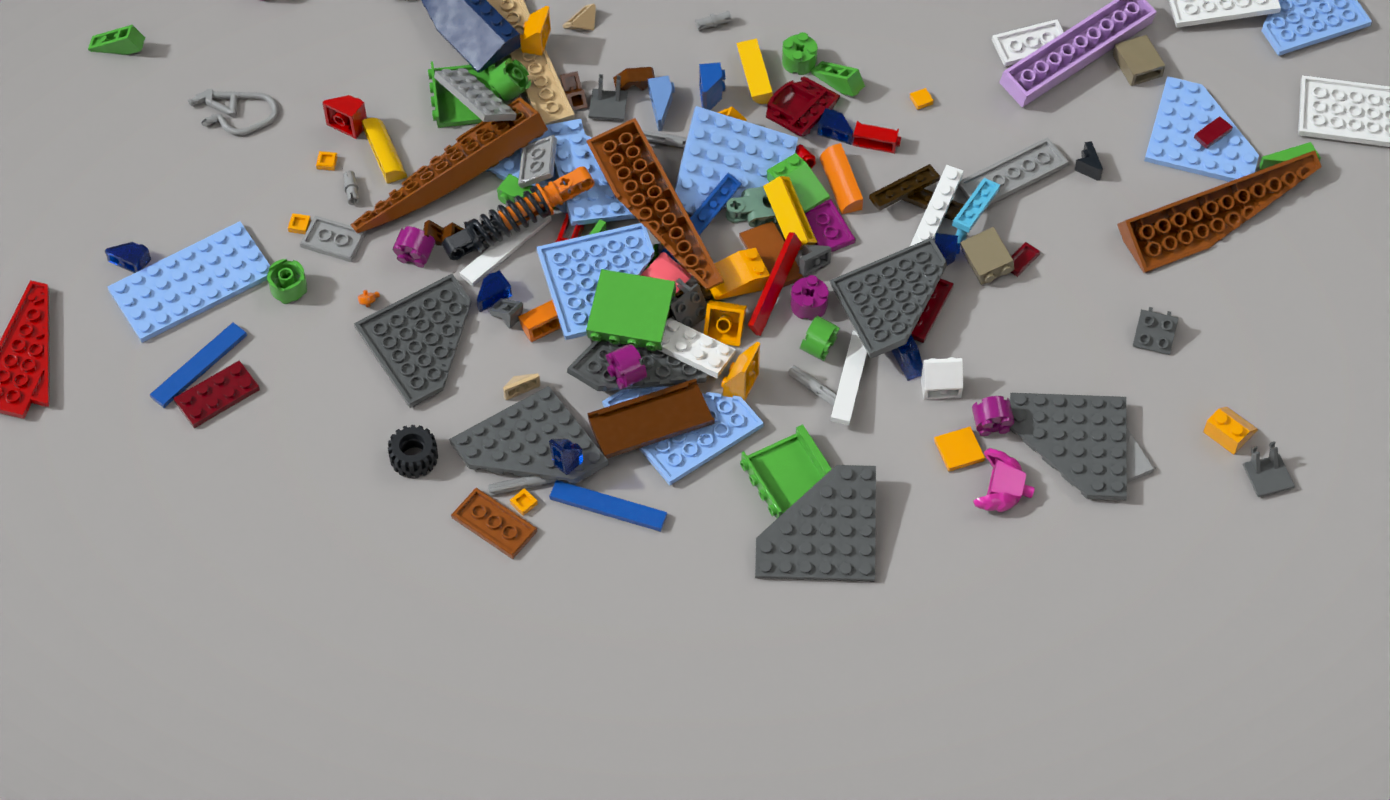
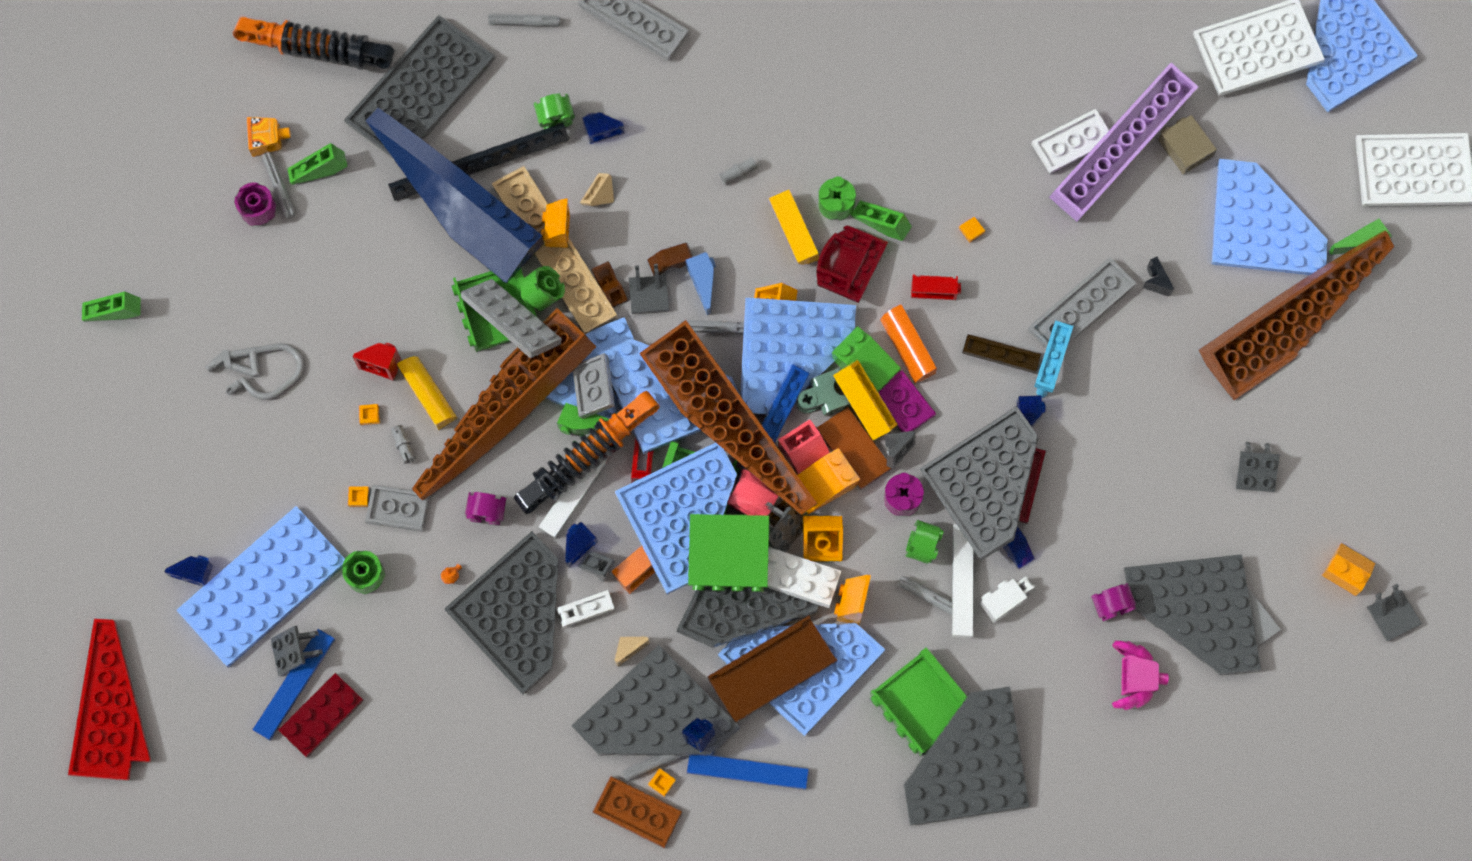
camera: 10 degrees left, 15 degrees up
(201, 335) = (288, 650): none -> dark grey plate
(413, 438) = (534, 732): black tyre -> none
(440, 233) = (510, 484): reddish brown slope -> none
(486, 345) = (586, 608): none -> white plate
(626, 366) = (738, 621): magenta brick -> none
(711, 84) = (752, 254): blue slope -> none
(722, 240) = (803, 446): none -> coral slope
(774, 284) = (865, 485): red tile -> none
(808, 157) = (866, 323): red cone -> none
(835, 126) = (890, 281): clear blue slope -> none
(889, 399) = (1006, 598): none -> white brick
(904, 187) = (976, 346): dark brown plate -> none
(938, 204) = (1013, 366): white plate -> none
(942, 378) = (1055, 567): white slope -> none
(959, 449) = (1085, 641): light orange tile -> none
(987, 256) = (1074, 412): dark tan brick -> none
(1023, 258) = (1107, 406): dark red tile -> none
(1213, 132) = (1278, 222): dark red tile -> none

